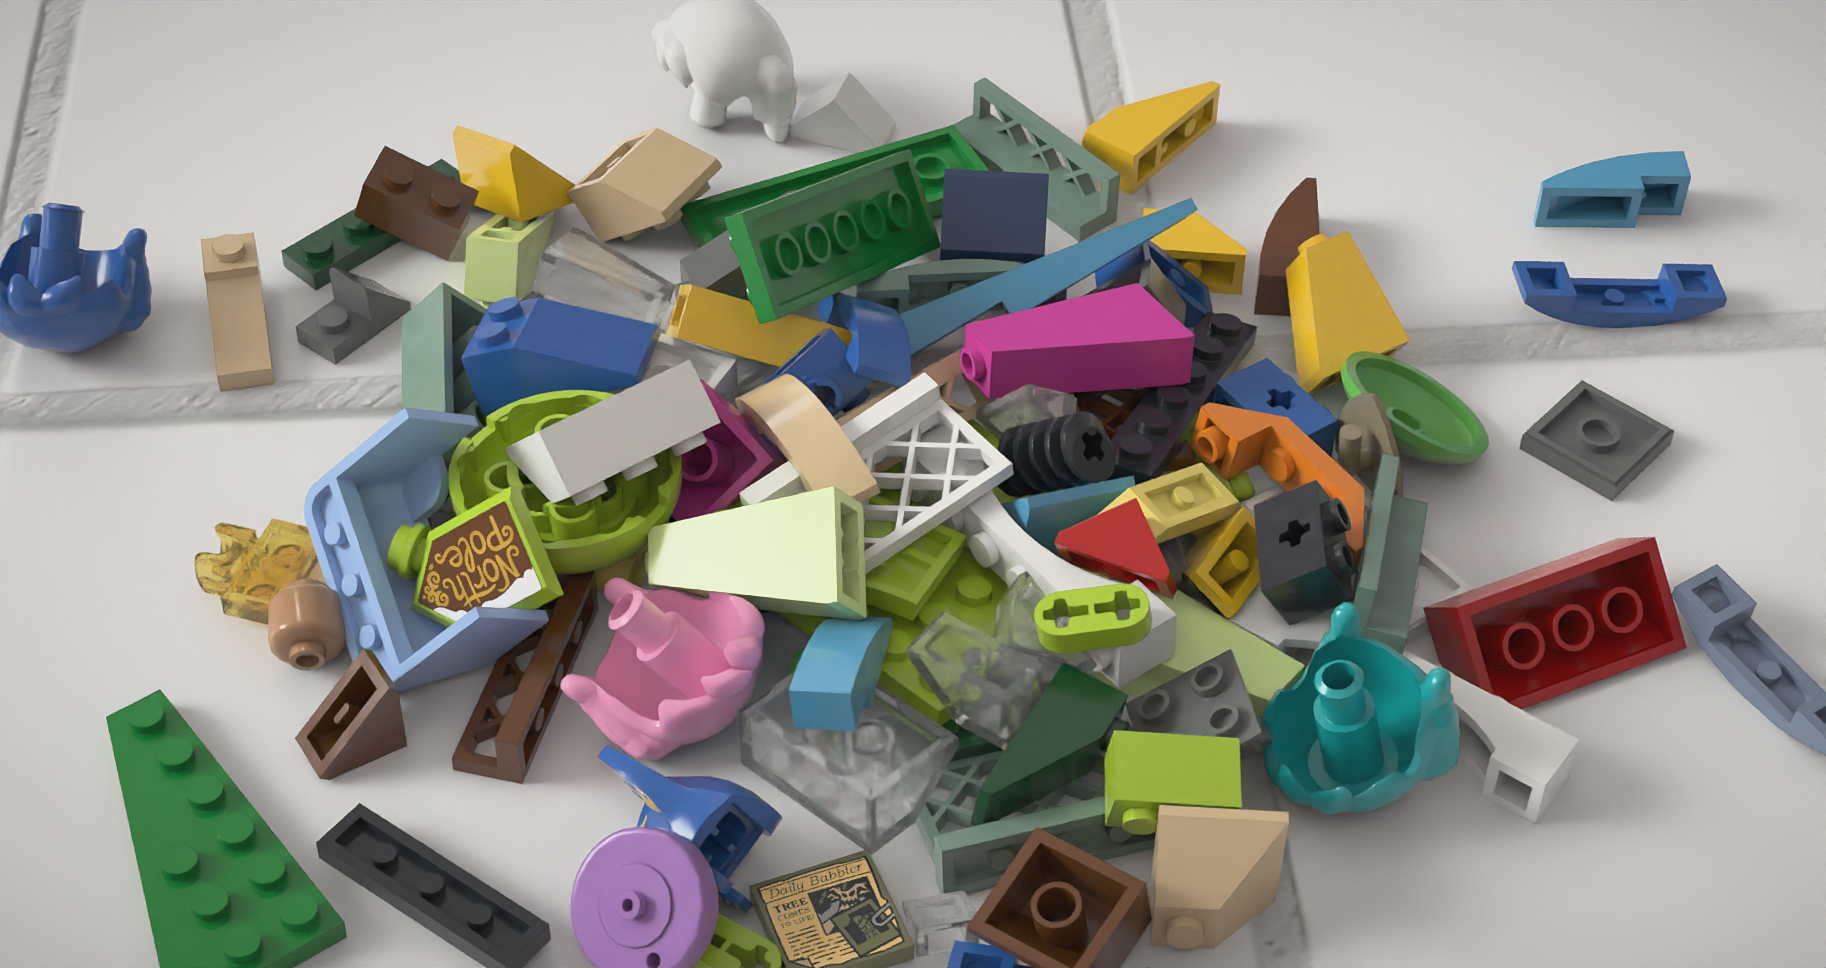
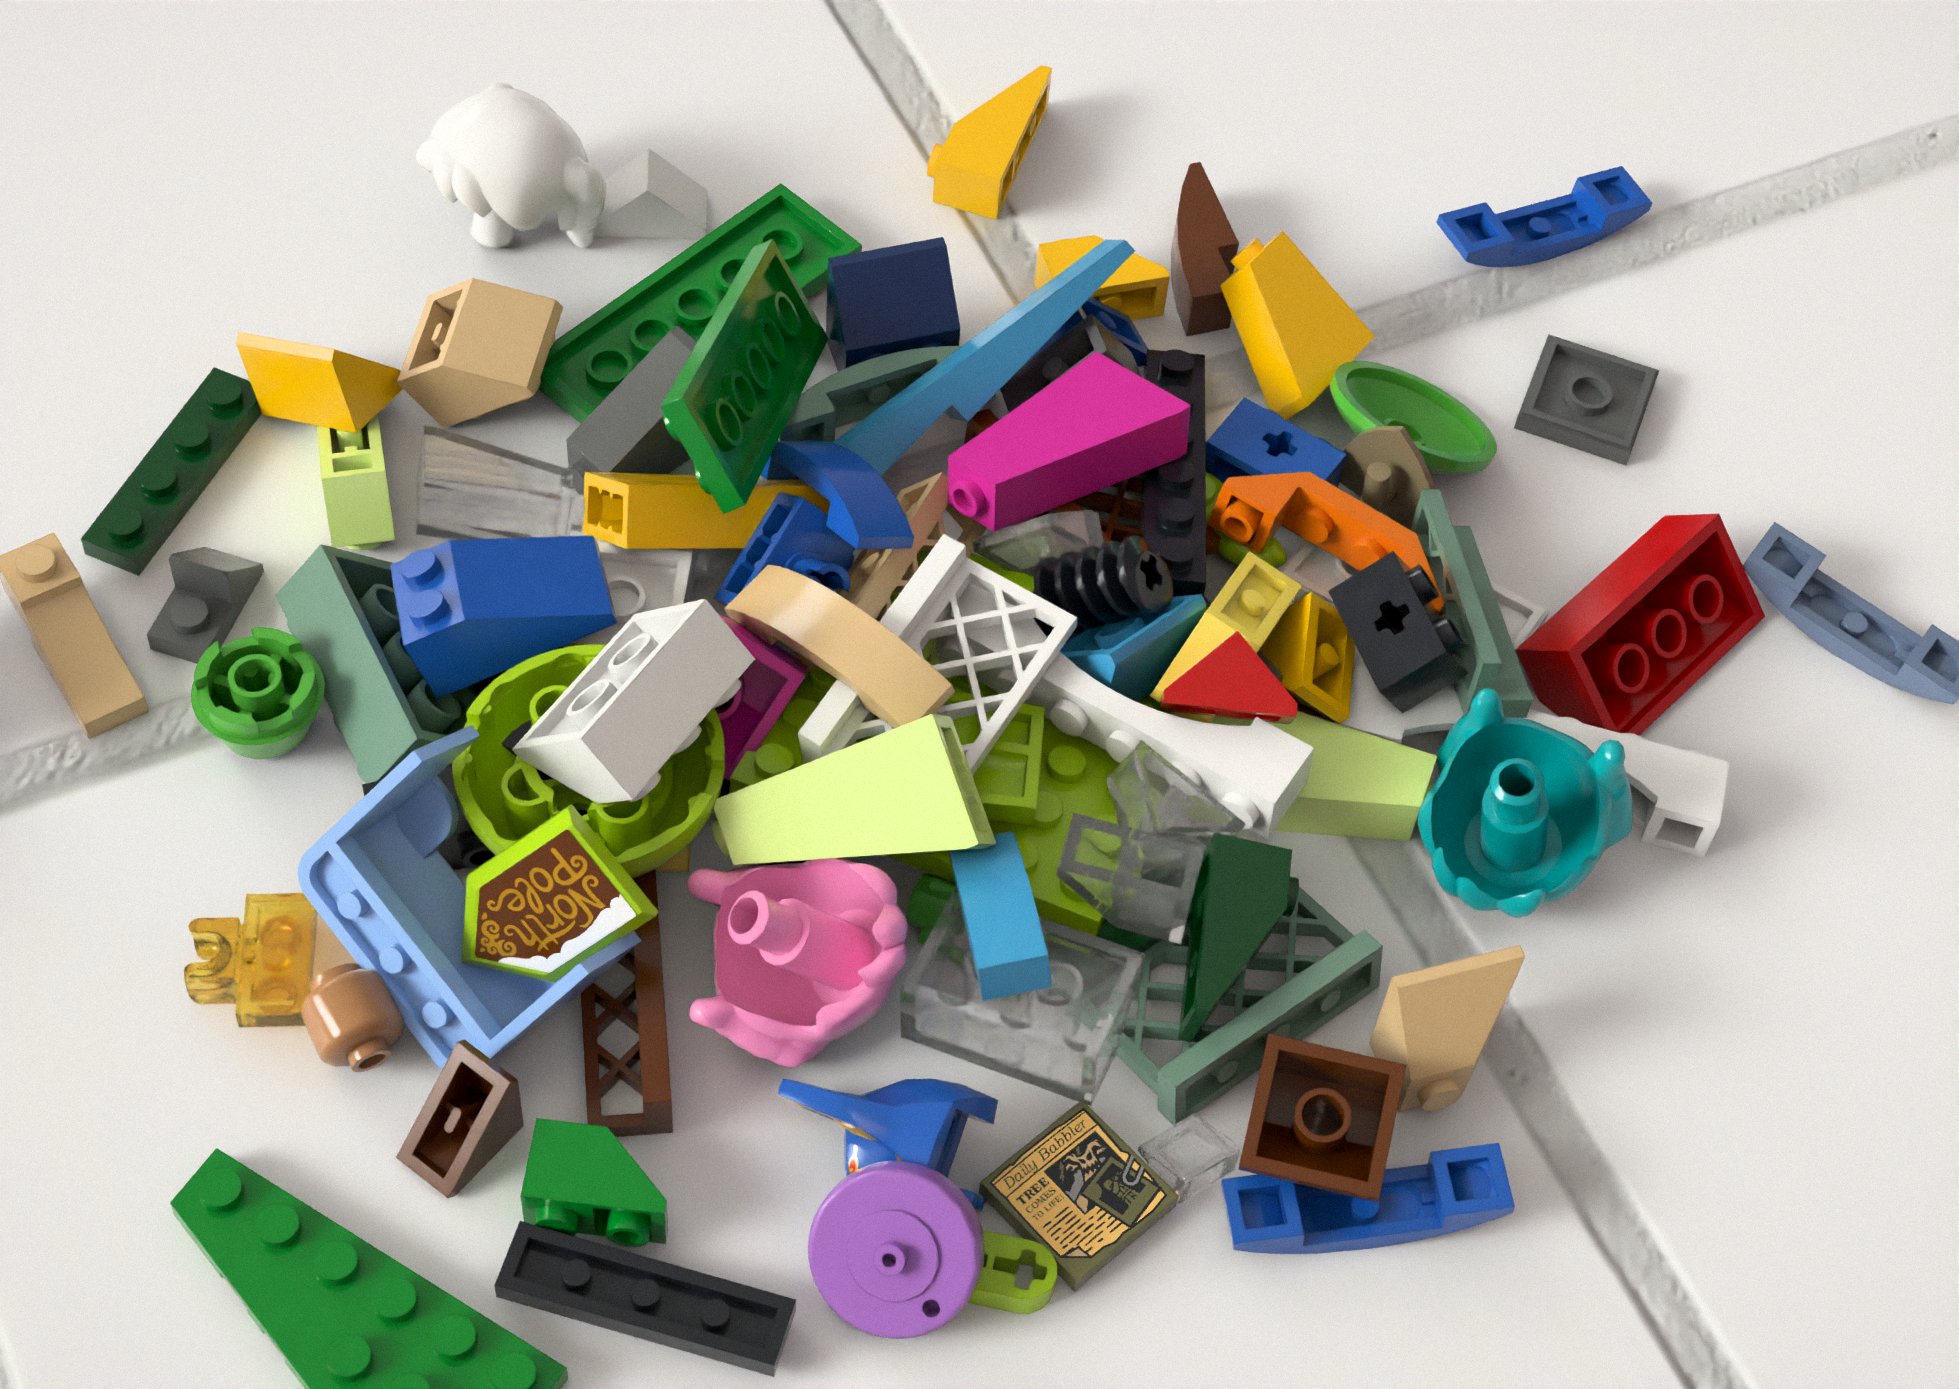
camera: 25 degrees left, 10 degrees up
(350, 381) = (258, 693): none -> bright green cone
(407, 550) = (445, 898): lime plate -> none
(415, 203) = (226, 441): reddish brown brick -> none
(425, 794) = (590, 1185): none -> green slope
(1004, 147) = (888, 213): sand green fence -> none
(1093, 618) = (1239, 783): lime beam -> none
(1168, 770) = (1378, 935): lime brick -> none
(1203, 703) = (1359, 853): dark grey hinge -> none
(1614, 191) = (1494, 99): dark azure slope -> none

